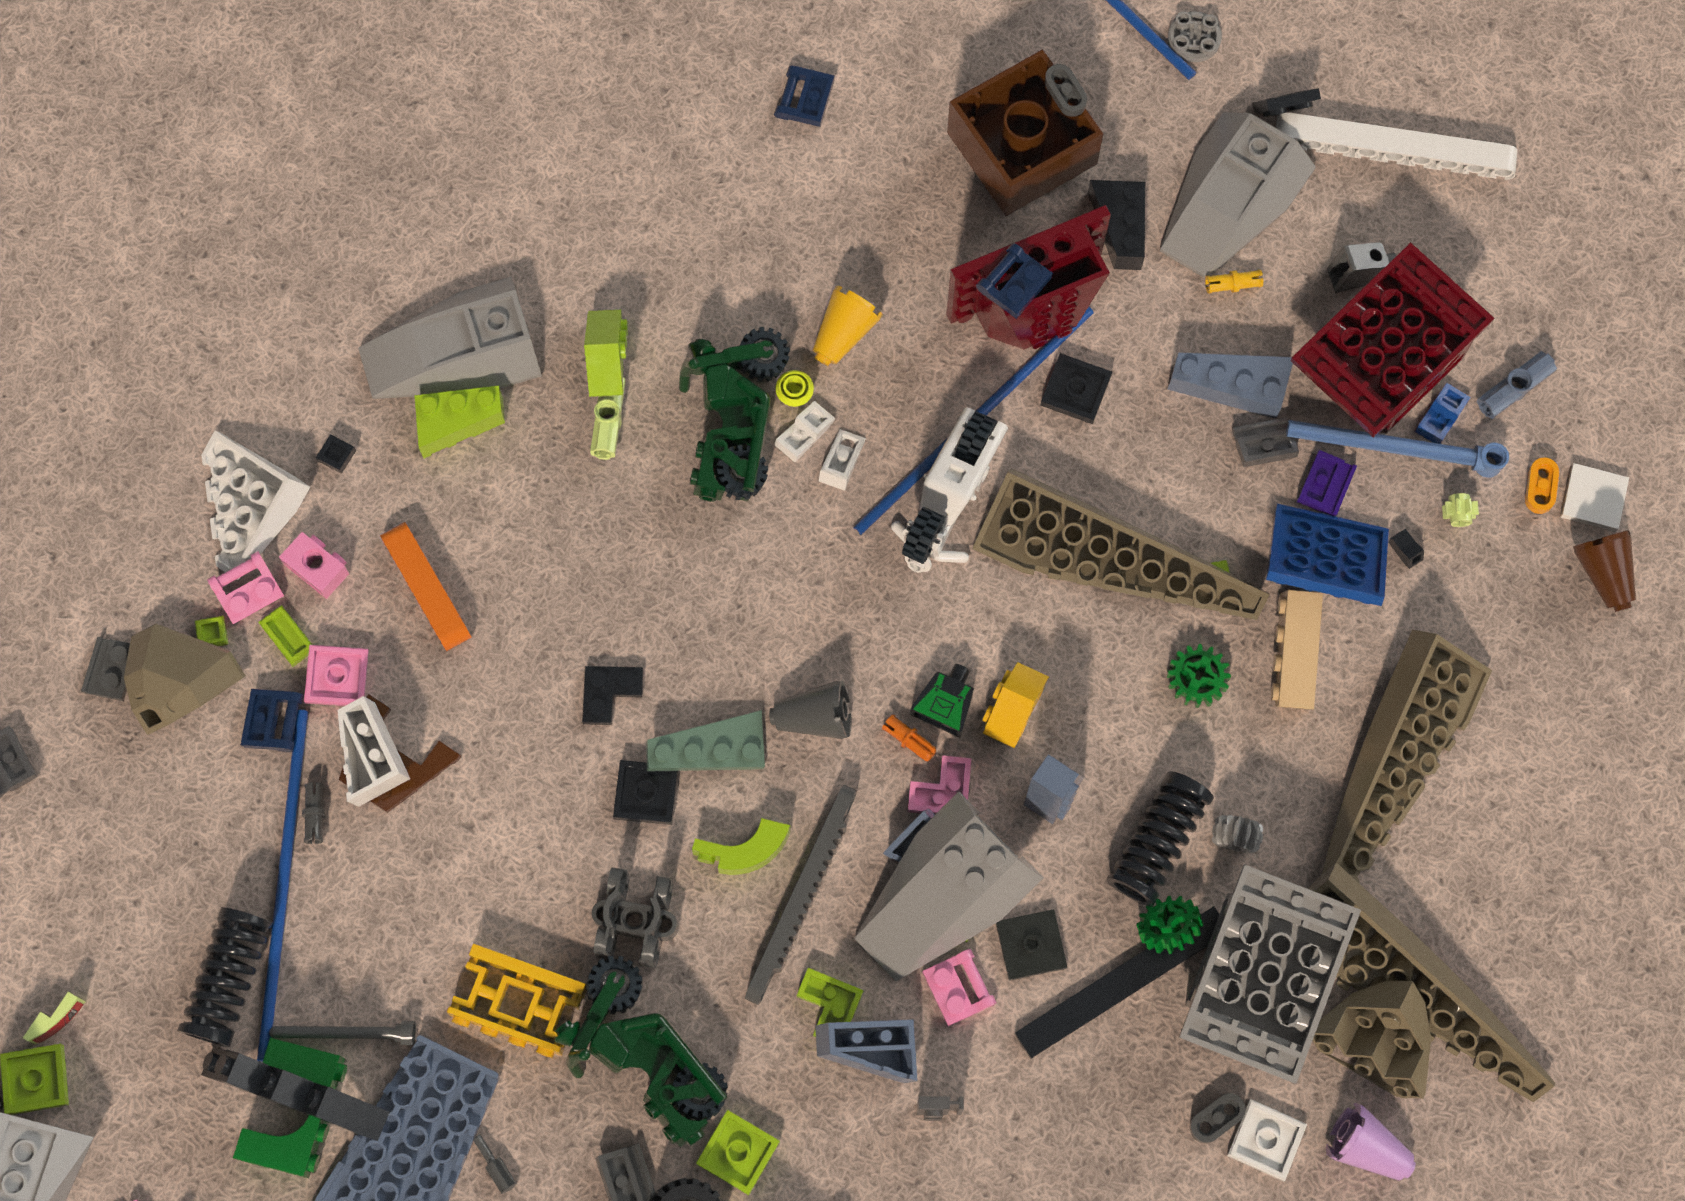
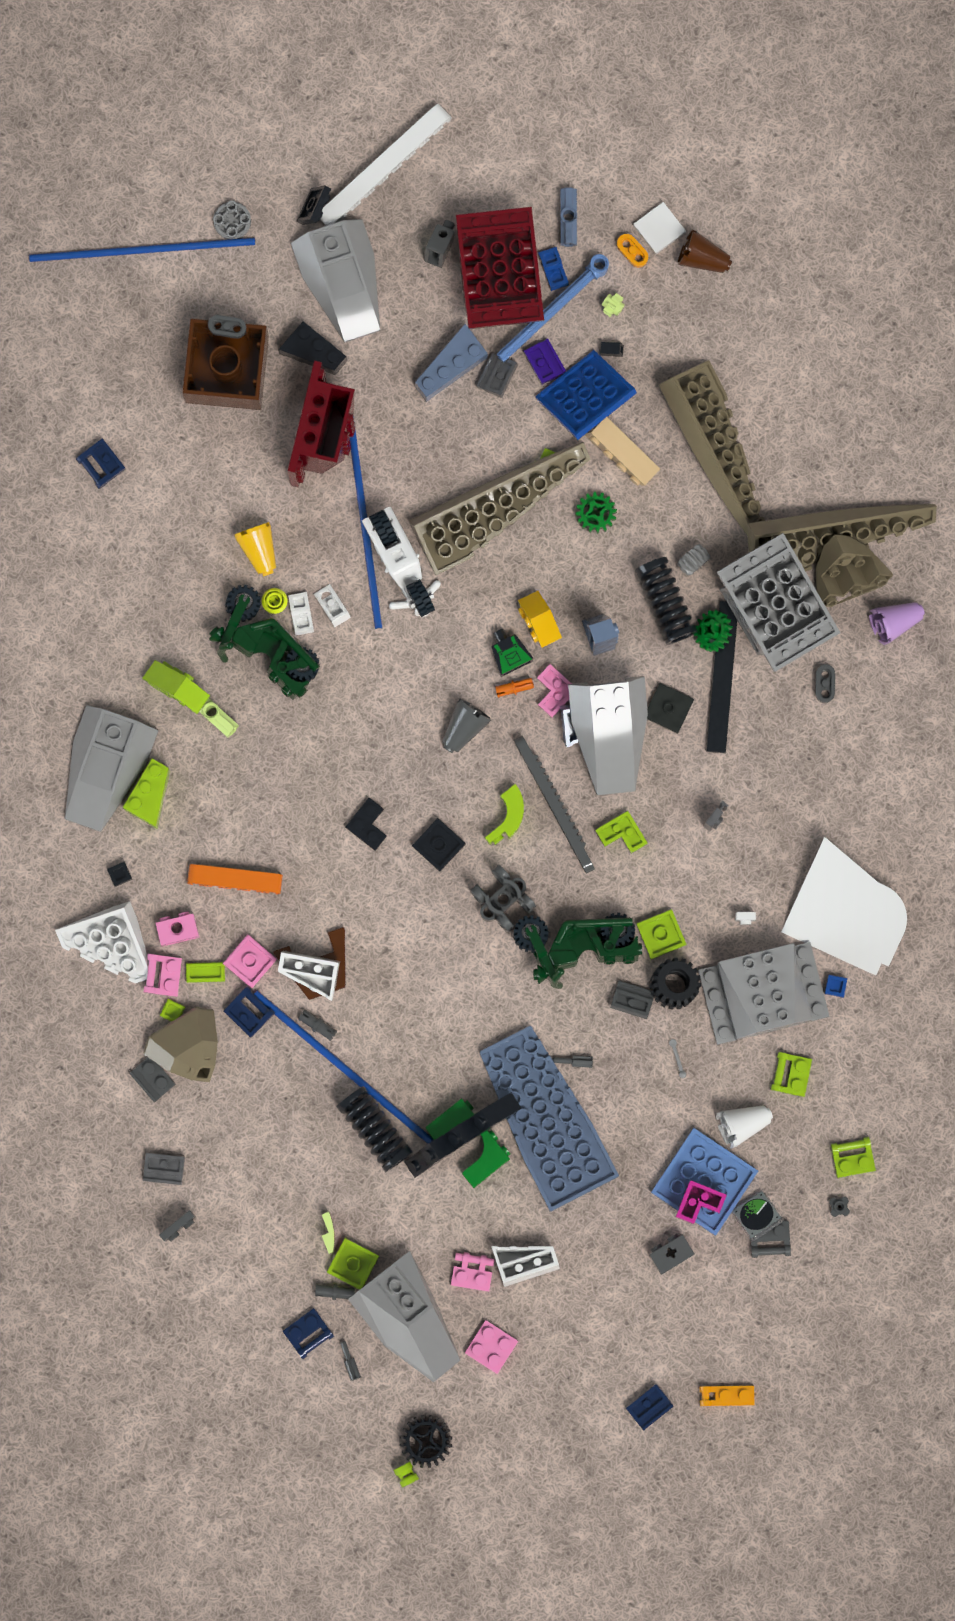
camera: 50 degrees left, 10 degrees up
(401, 1032) = (470, 1060): dark grey piece -> none
(525, 979) = (491, 977): yellow fence -> none
(714, 746) = (441, 792): sand green wing -> none
(871, 1046) = (661, 827): sand blue wedge -> none
(949, 990) = (659, 767): bright pink plate -> none
(1021, 287) = (328, 443): dark blue plate -> none
(1076, 388) = (389, 450): black plate -> none
(1234, 281) = (394, 317): yellow pin -> none
(1267, 1140) = (854, 667): white tile -> none

